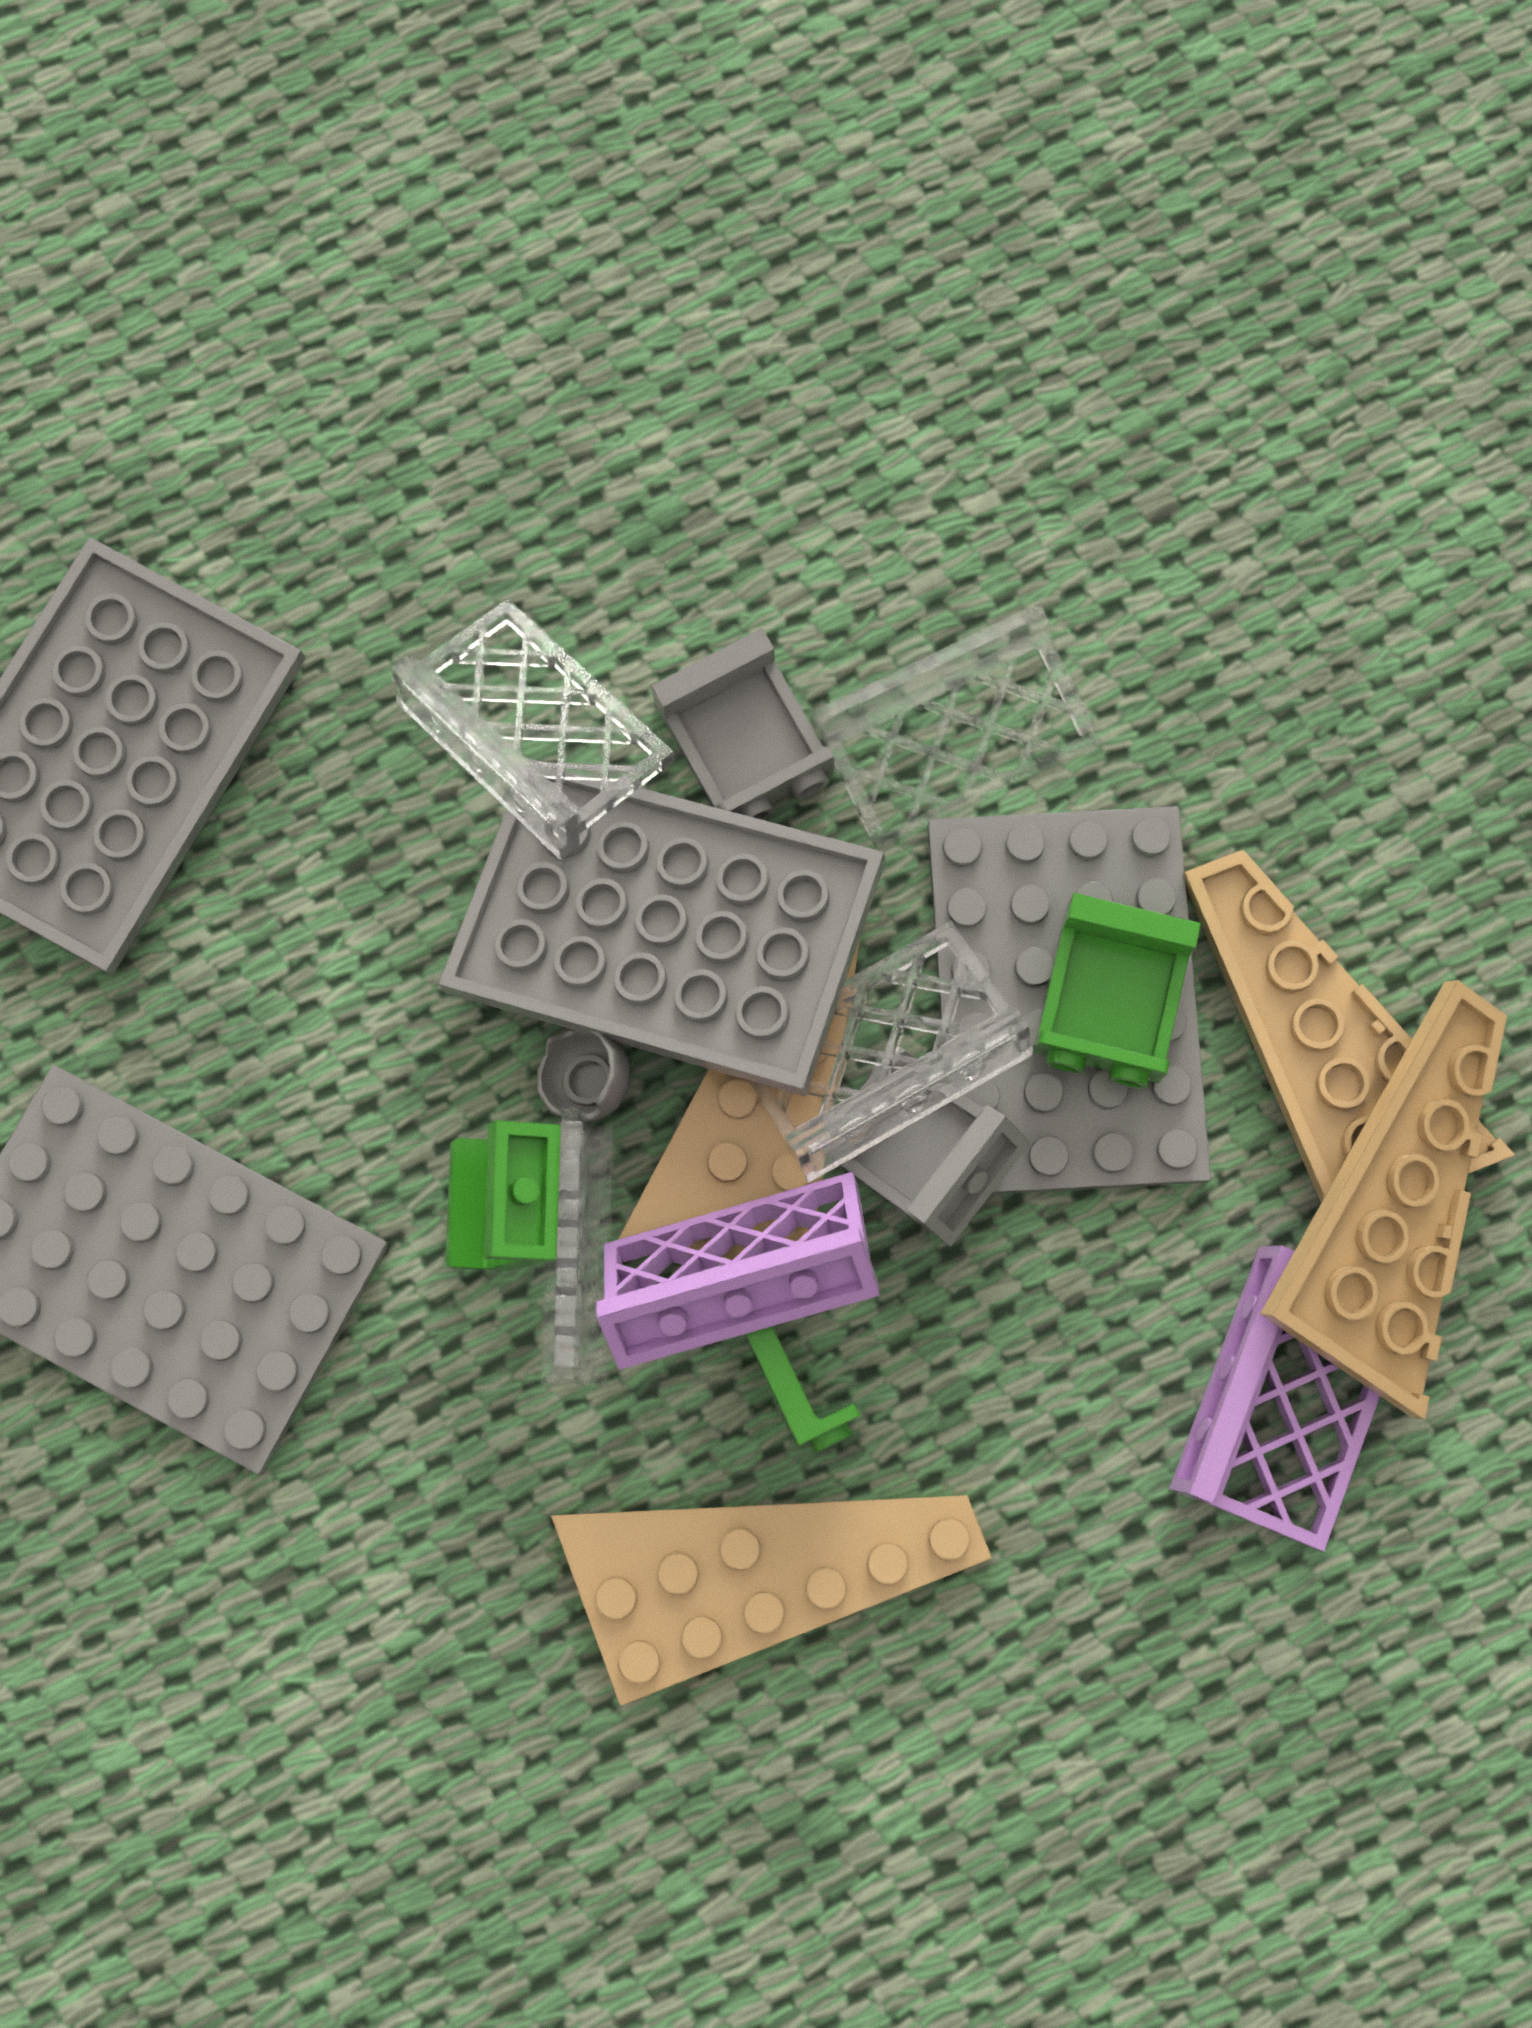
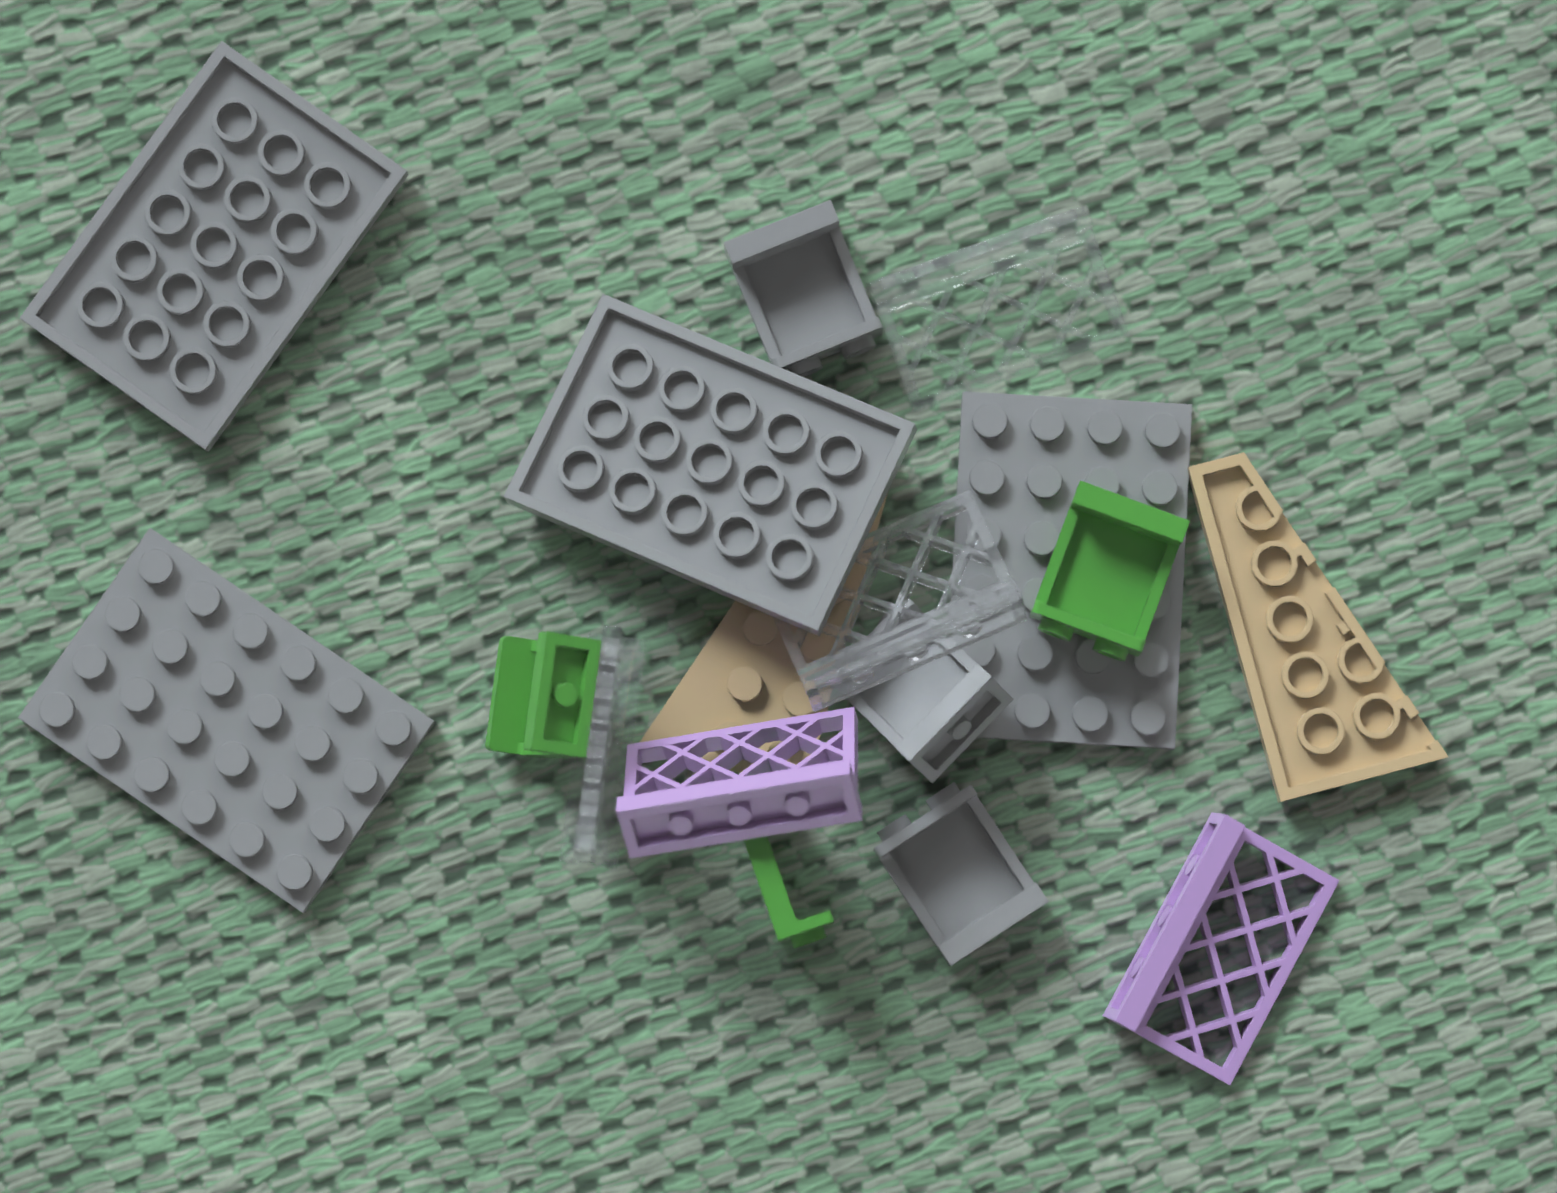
camera: 10 degrees right, 5 degrees up
(484, 745) = (565, 281): clear fence -> none
(583, 1074) = (624, 592): light grey hair -> none
(723, 1582) = (697, 1052): tan wing -> none
(989, 1347) = (958, 872): none -> light grey panel
(1394, 1219) = (1325, 806): tan wing -> none

